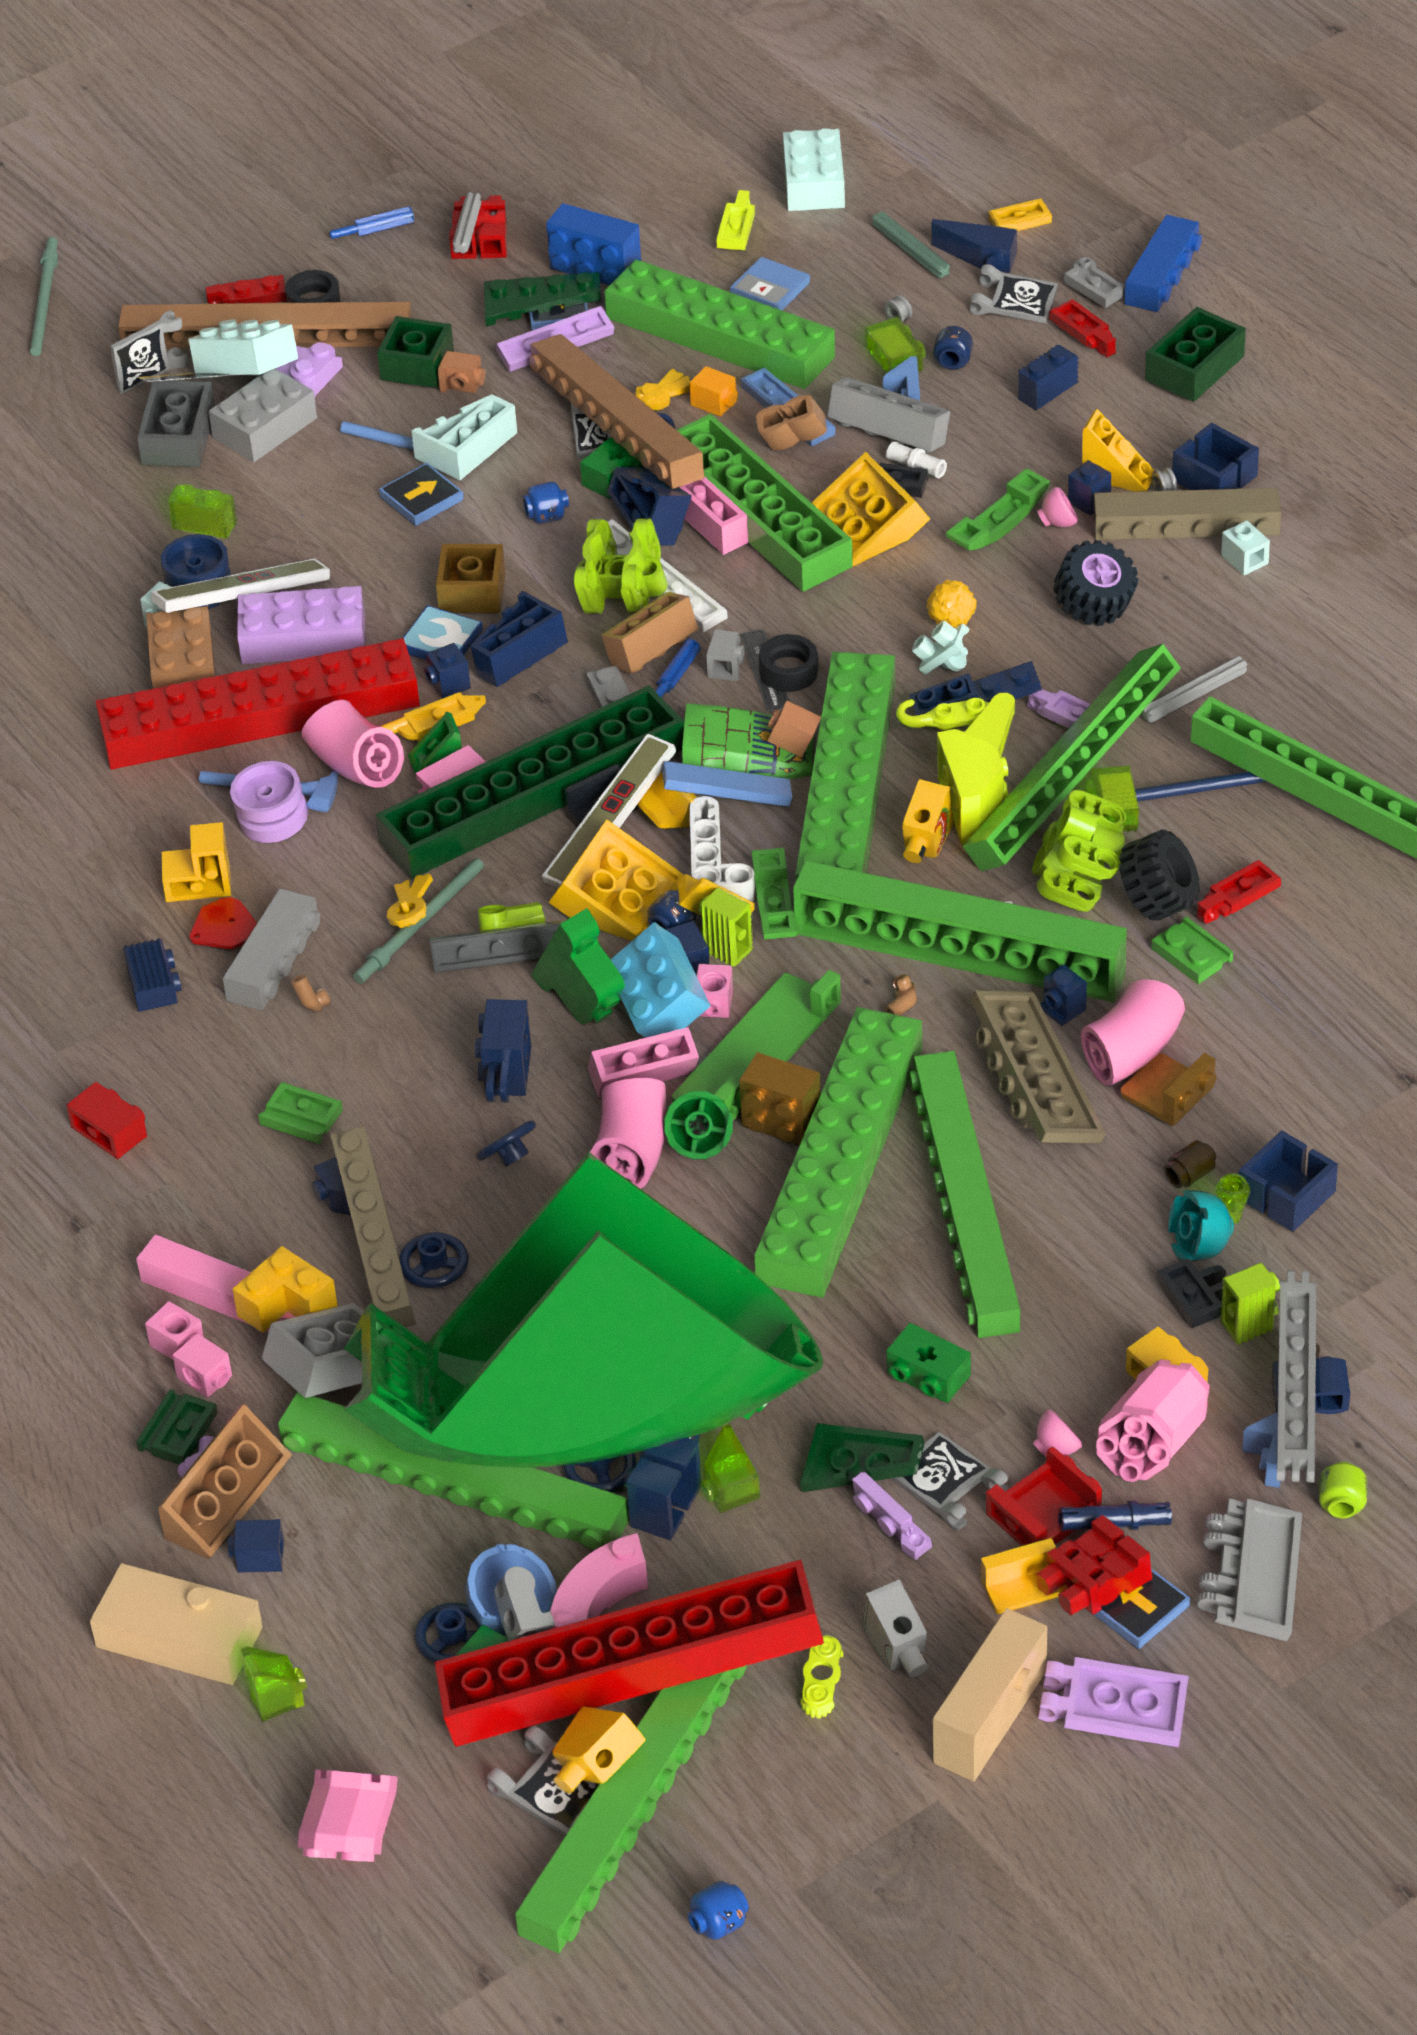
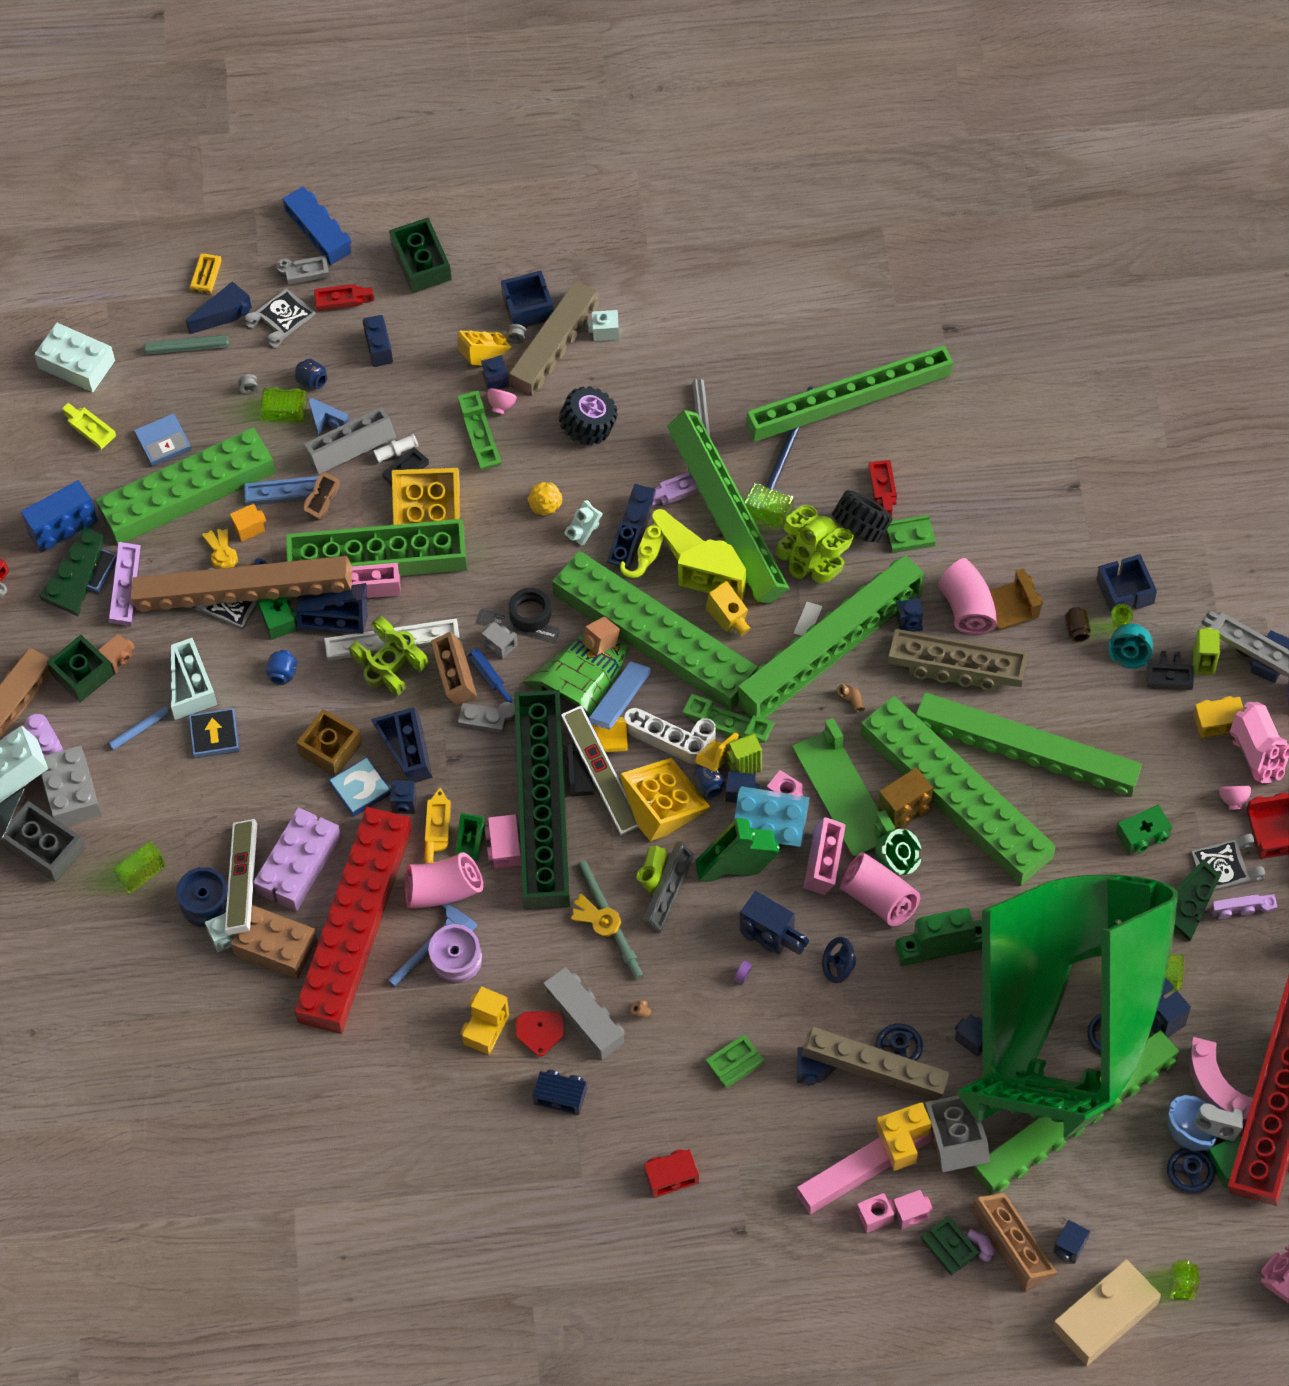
camera: 60 degrees left, 15 degrees up
(428, 1064) = (743, 972): none -> medium lavender tile

